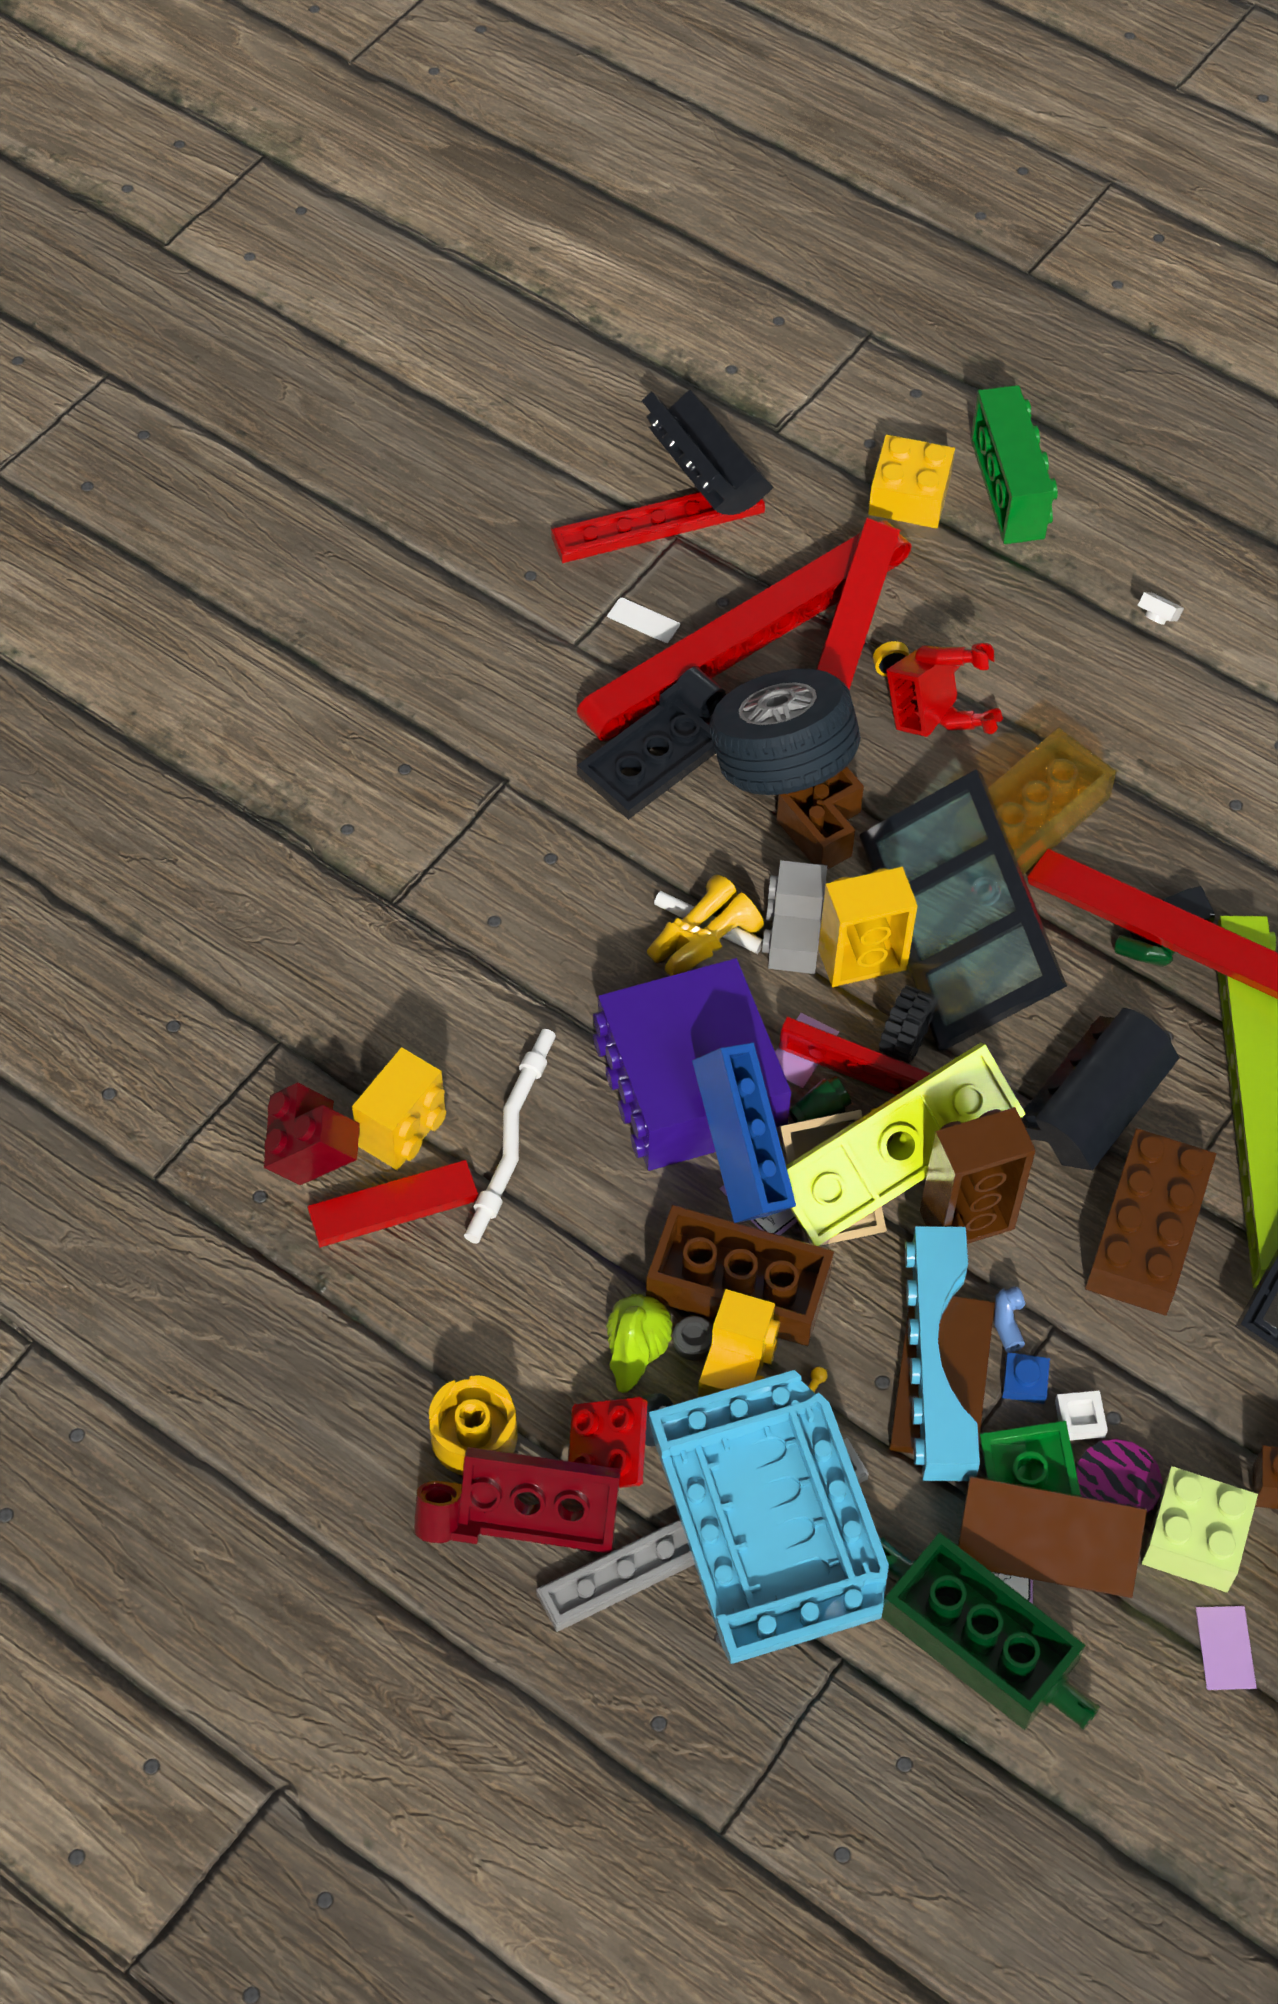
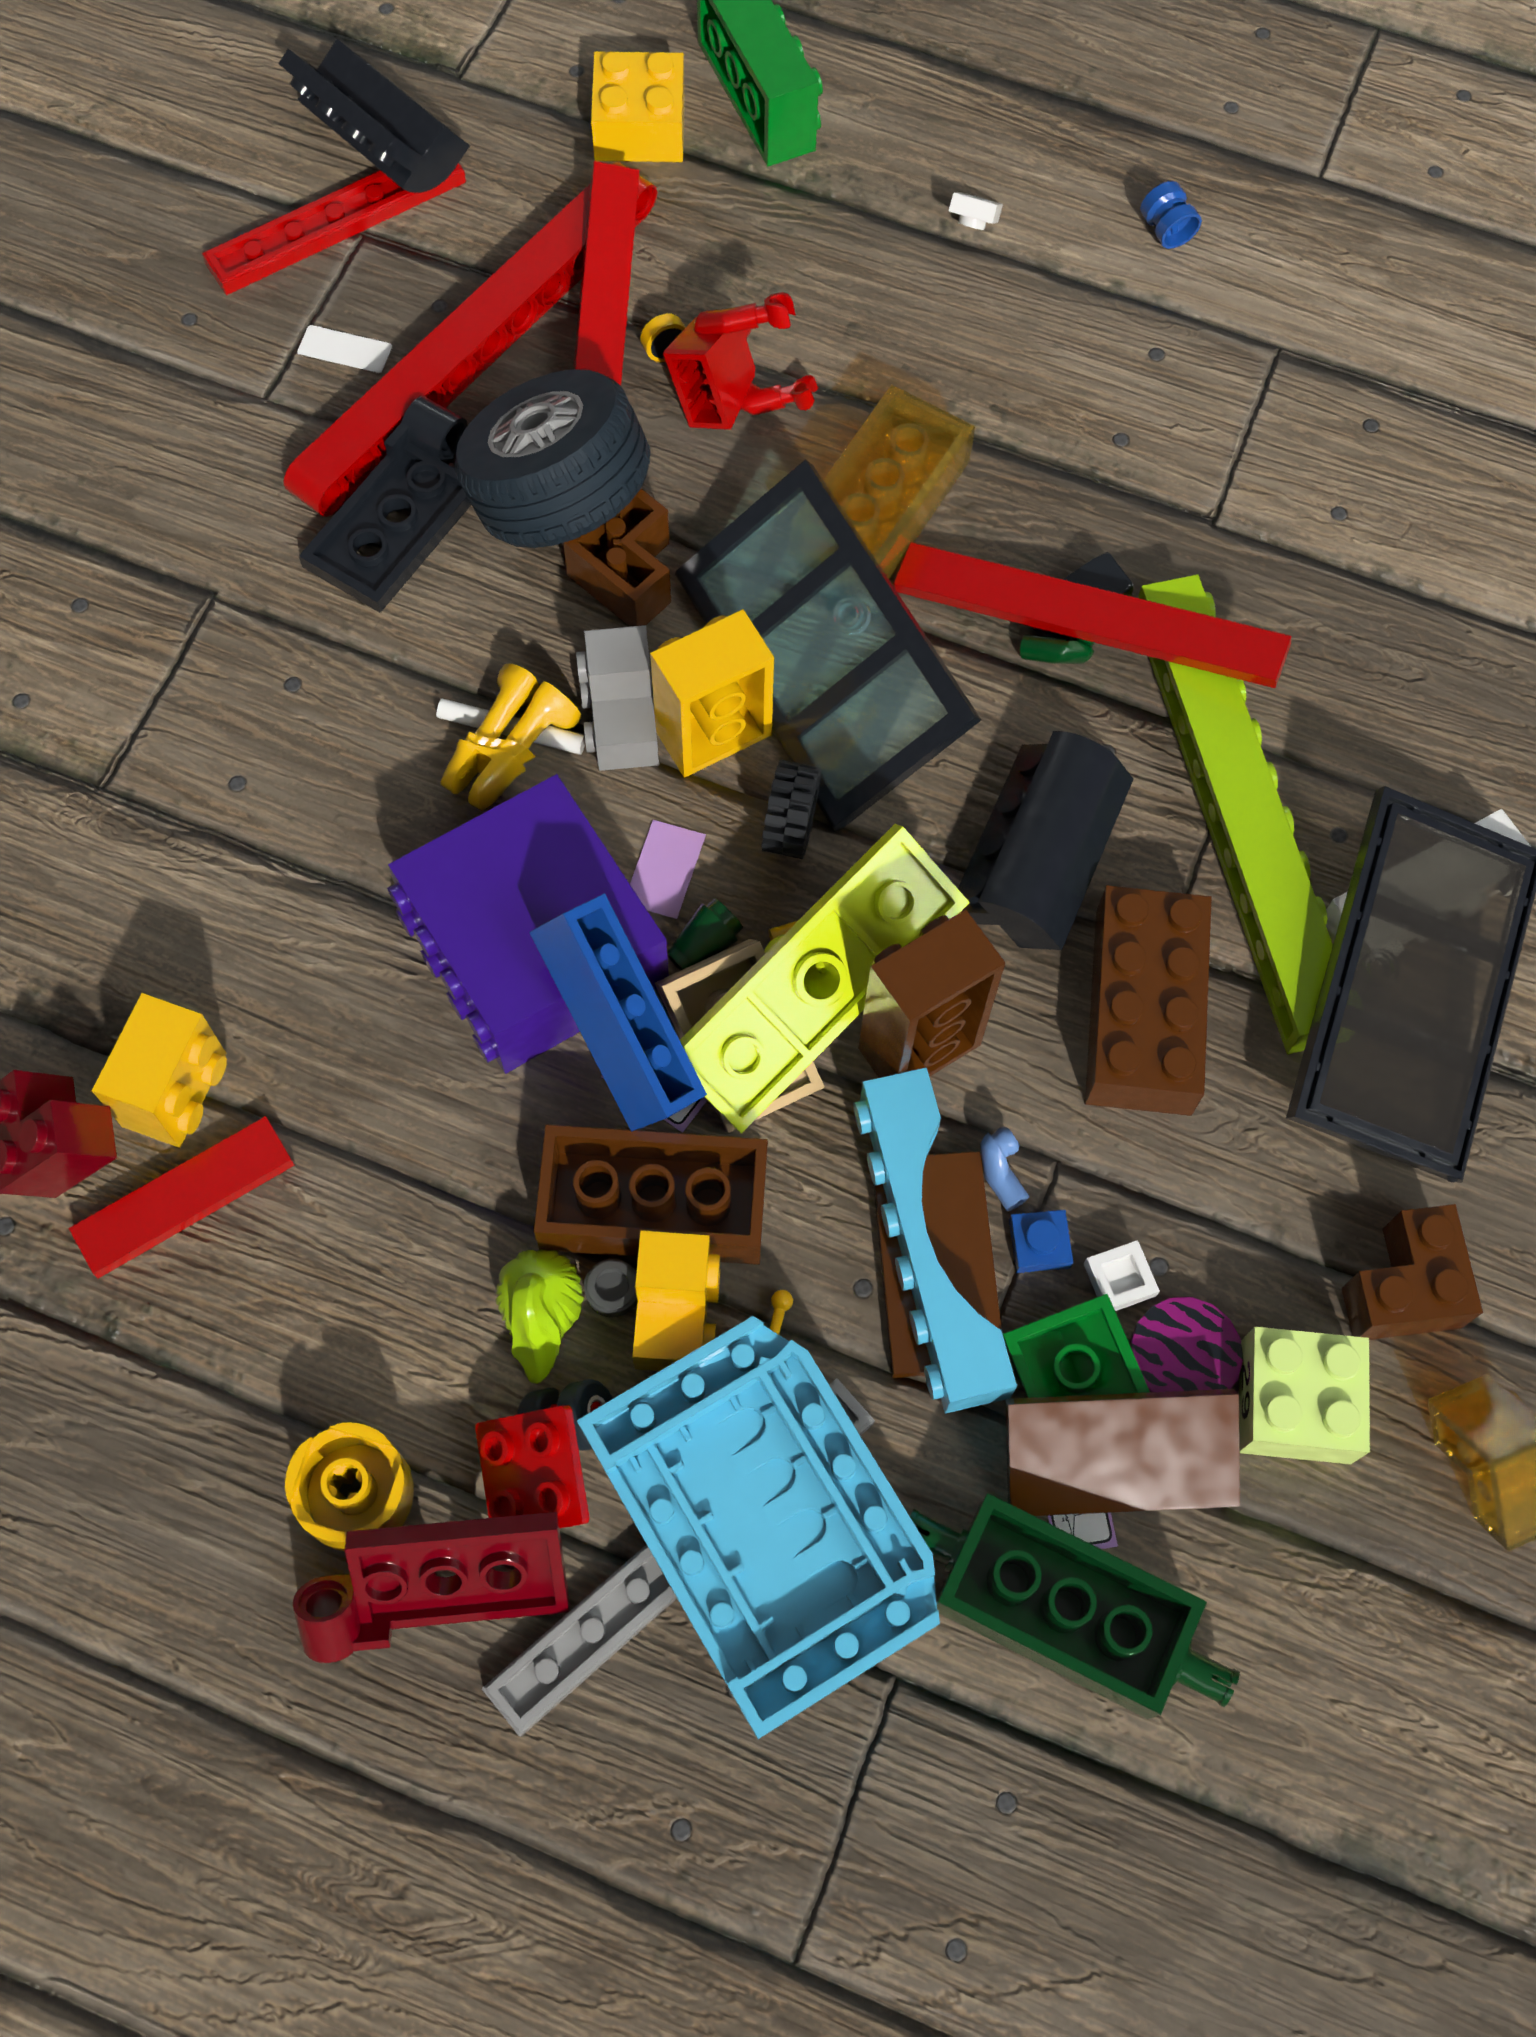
camera: 15 degrees left, 10 degrees up
(490, 1201) = (308, 1166): white bar -> none
(848, 1057) = (732, 870): red tile -> none
(1225, 1648) = (1366, 1539): lavender sticker -> none

